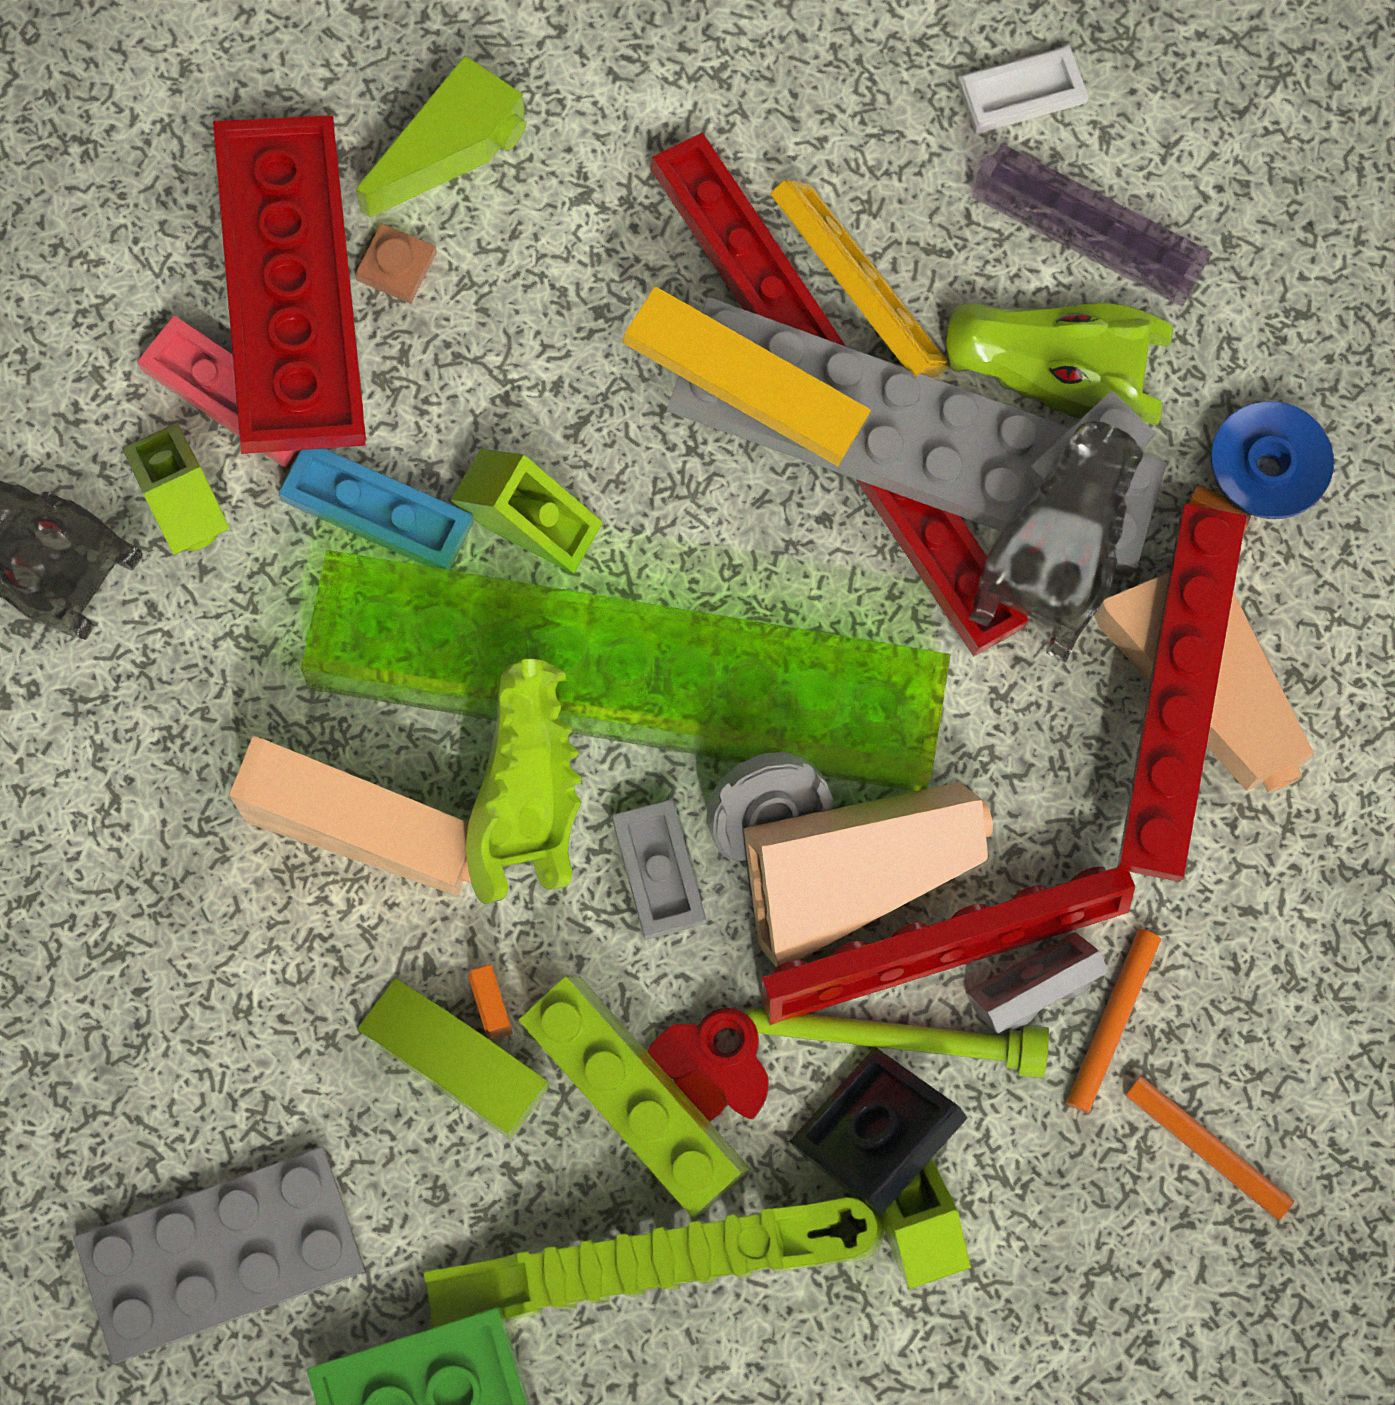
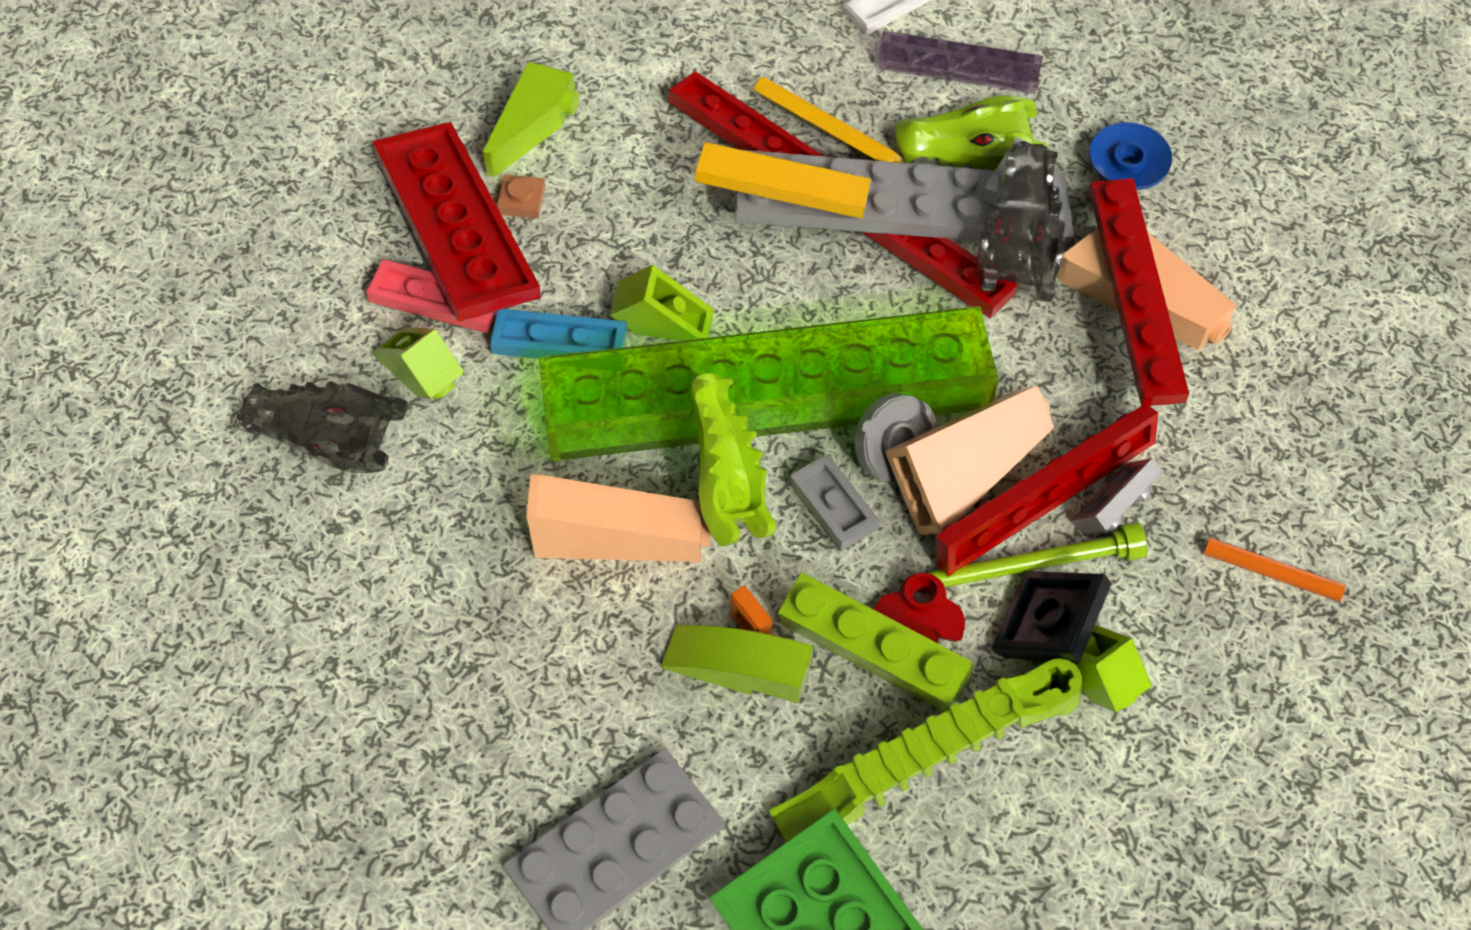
camera: 15 degrees left, 15 degrees down
(1113, 1021) = (1175, 510): orange bar -> none

